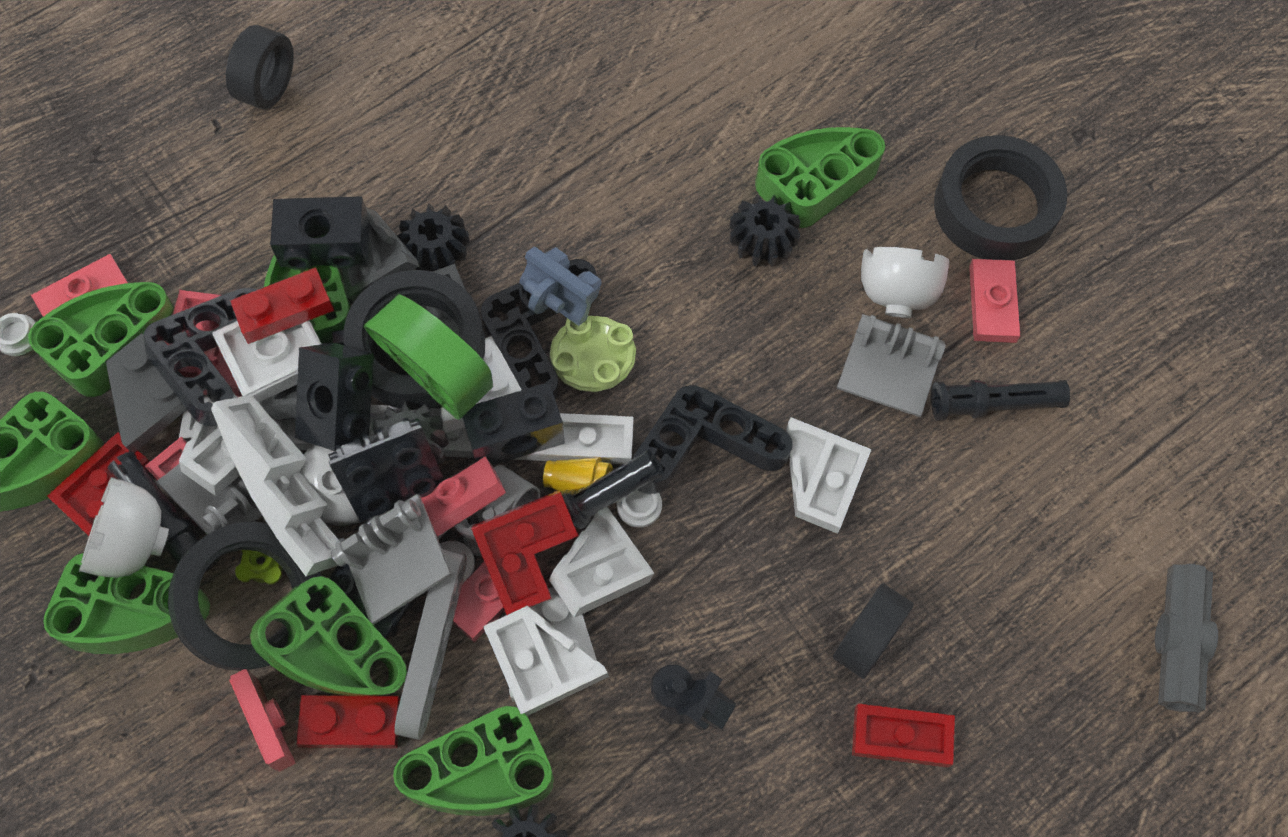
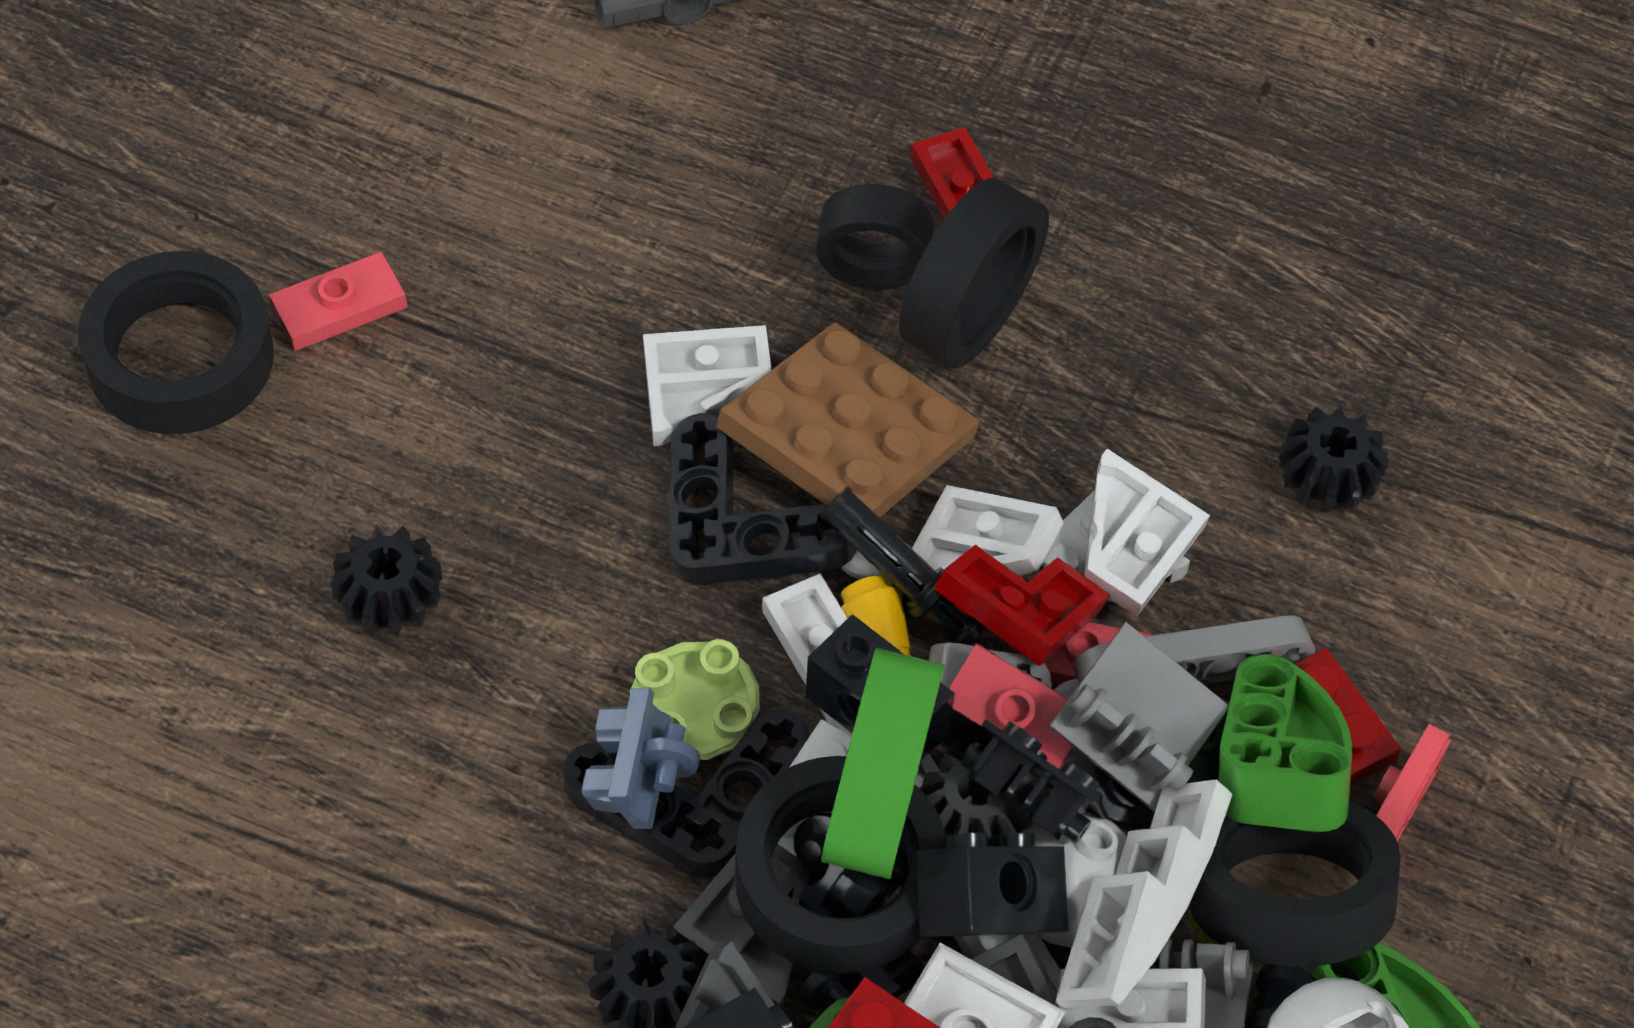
camera: 120 degrees left, 10 degrees down
(491, 780) = (1291, 528): bright green beam -> none
(691, 697) = (1072, 365): black hips -> none
(734, 538) = (847, 419): none -> medium nougat plate
(794, 662) = (973, 272): none -> black tyre
(808, 162) = (255, 575): bright green beam -> none
(891, 365) = (500, 369): light grey hinge -> none
(903, 279) = (378, 387): white cylinder -> none
(979, 398) = (497, 260): black pin -> none

